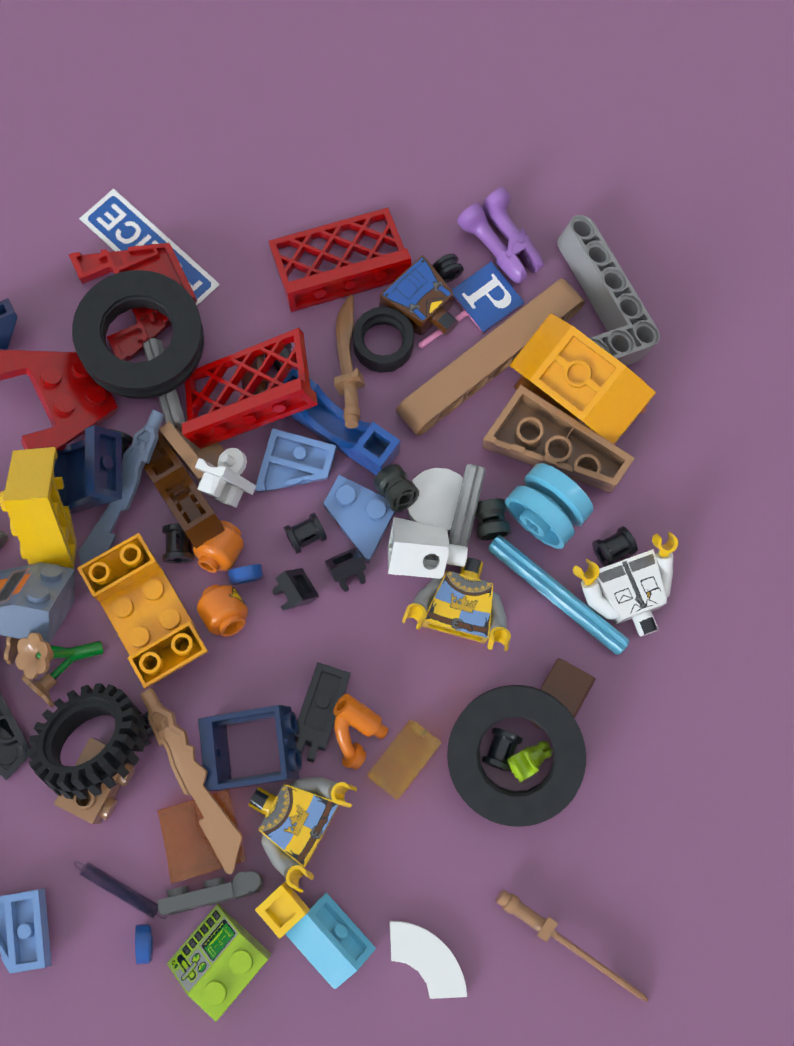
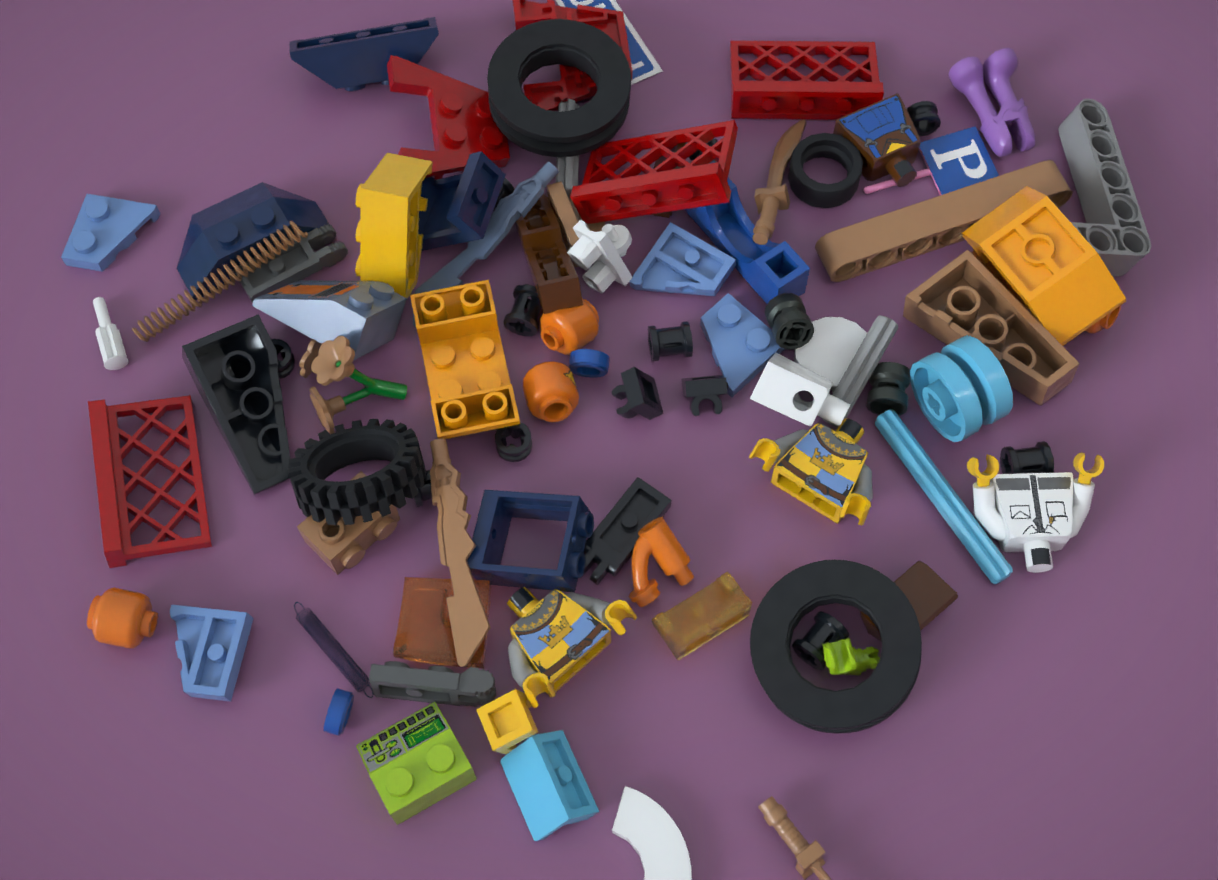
camera: 25 degrees right, 10 degrees down
(208, 672) = (511, 452): none -> black bush

